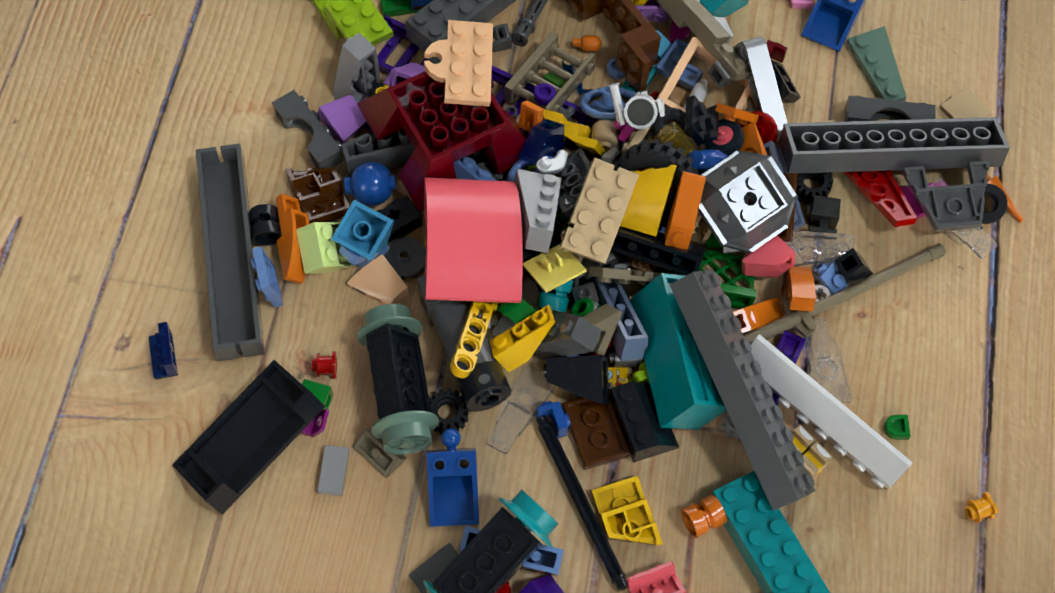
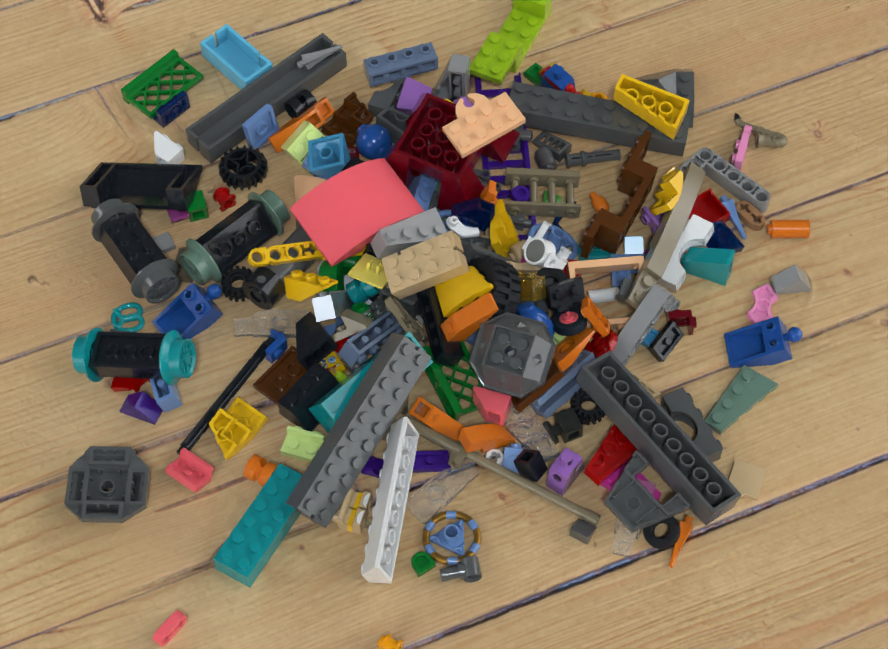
camera: 60 degrees right, 5 degrees down
(102, 351) = (153, 77): none -> green fence
(153, 250) = (234, 57): none -> medium azure piece
(216, 181) = (311, 59): none -> light grey piece
(216, 389) = (166, 150): none -> white slope
(298, 103) = (400, 64): none -> sand blue brick
(305, 313) = (240, 163): none -> black gear
(336, 490) = (134, 251): none -> brick
(408, 549) = (127, 318): none -> teal piece
(506, 56) = (545, 159): none -> flat silver brick
(692, 459) = (301, 443): none -> yellowish green bracket
(877, 243) = (566, 467): none -> medium lavender torso
(884, 384) = (451, 537): none -> medium blue piece
(932, 390) = (467, 569): none -> dark grey pin
(944, 268) = (582, 531): none -> dark grey slope

